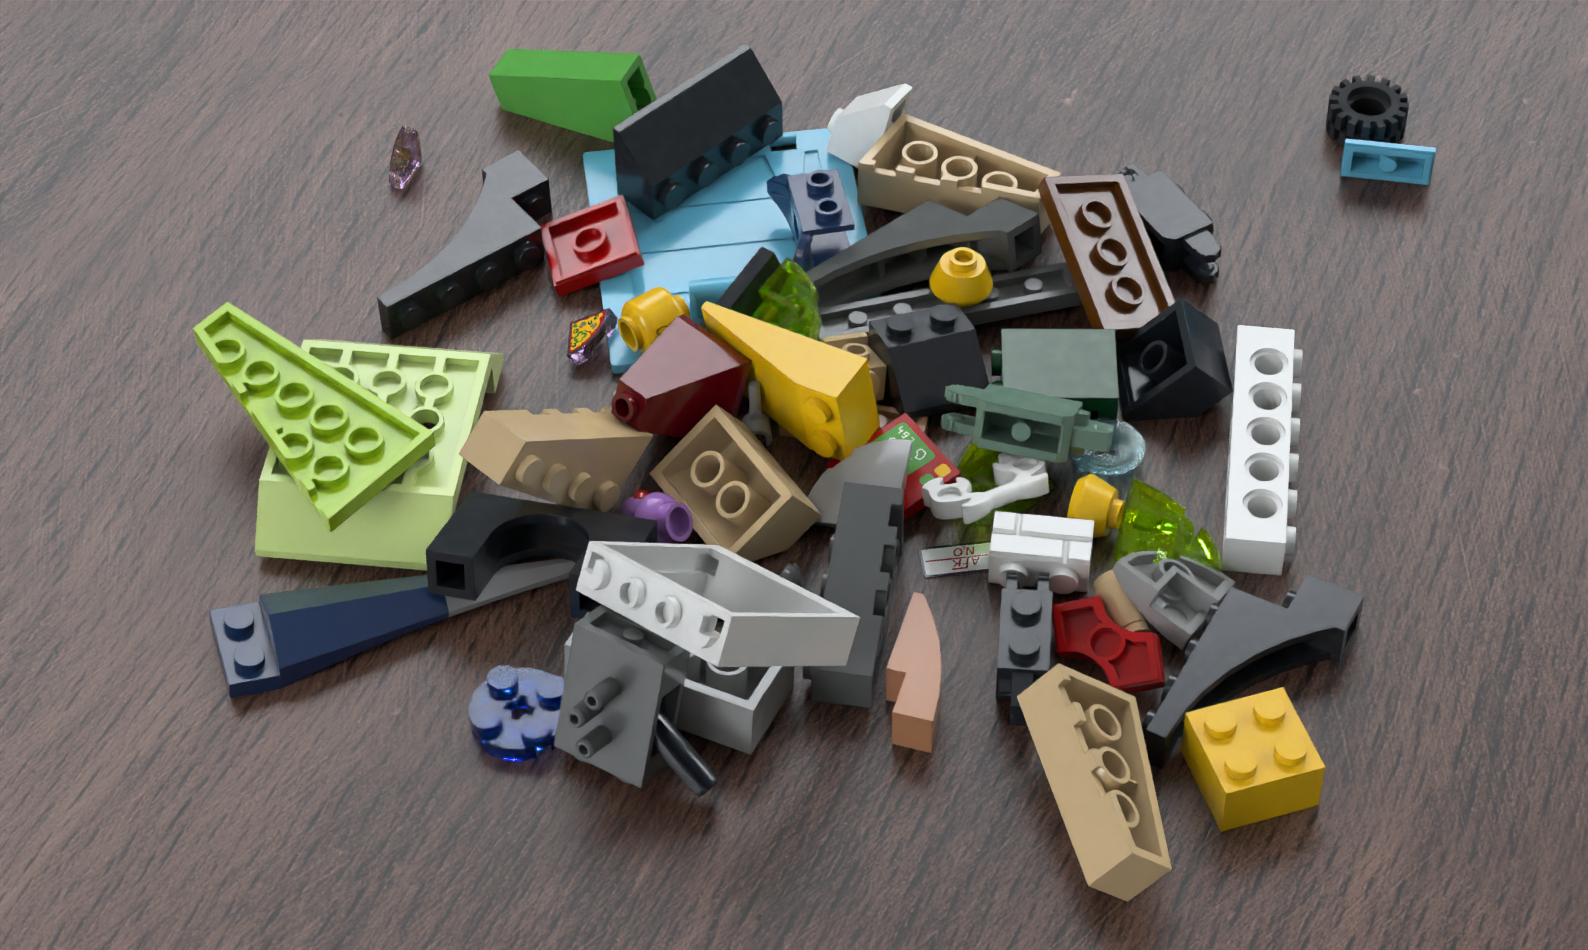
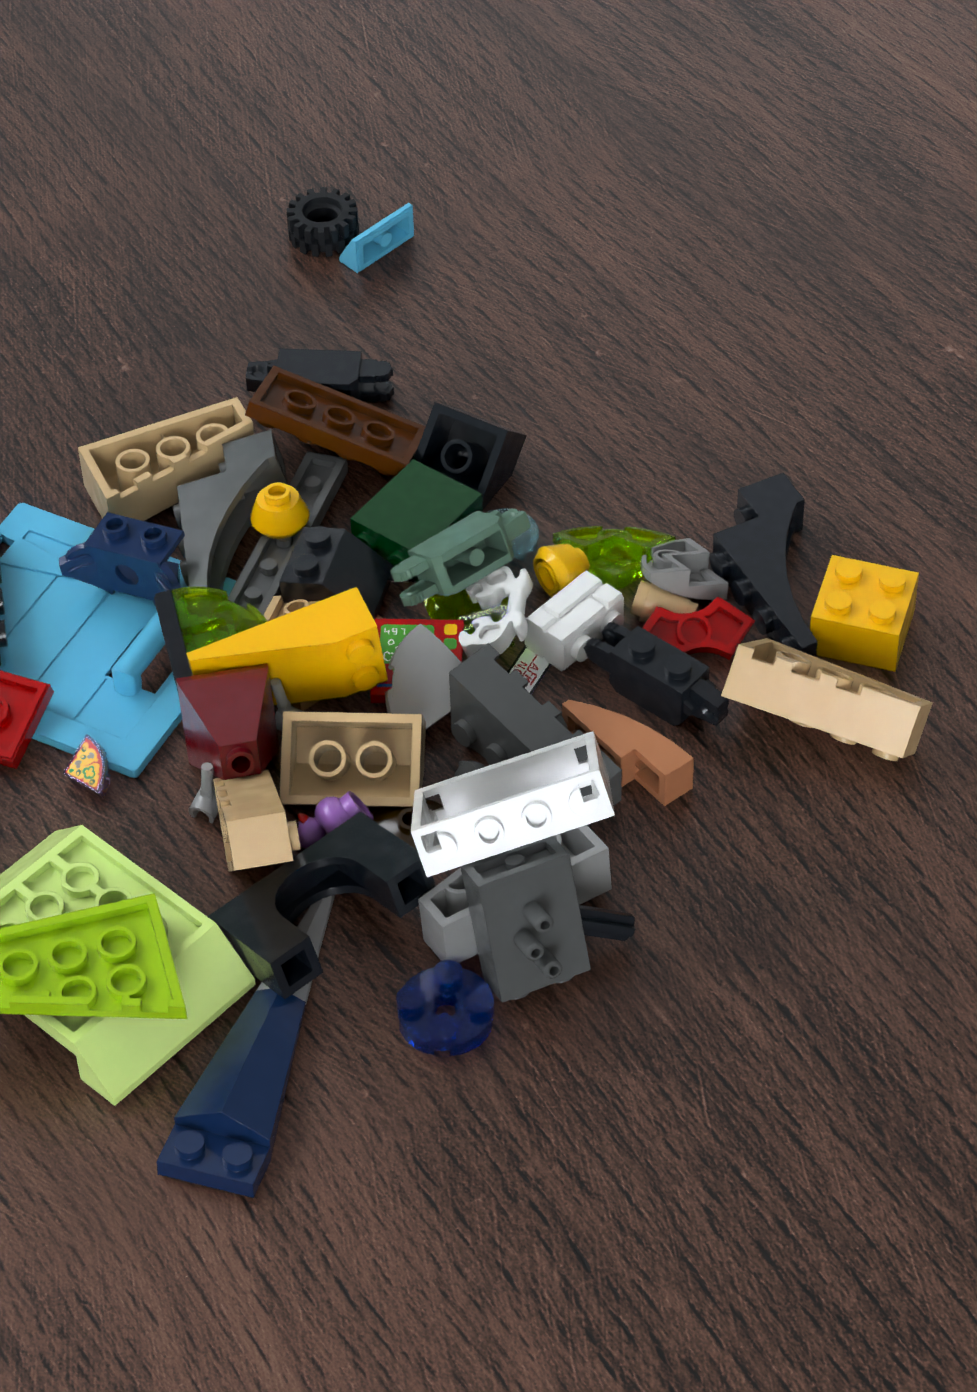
camera: 55 degrees left, 0 degrees up
(649, 316) = (133, 713): yellow head -> none
(865, 122) = (59, 477): white slope -> none
(1260, 453) = (591, 455): white brick -> none

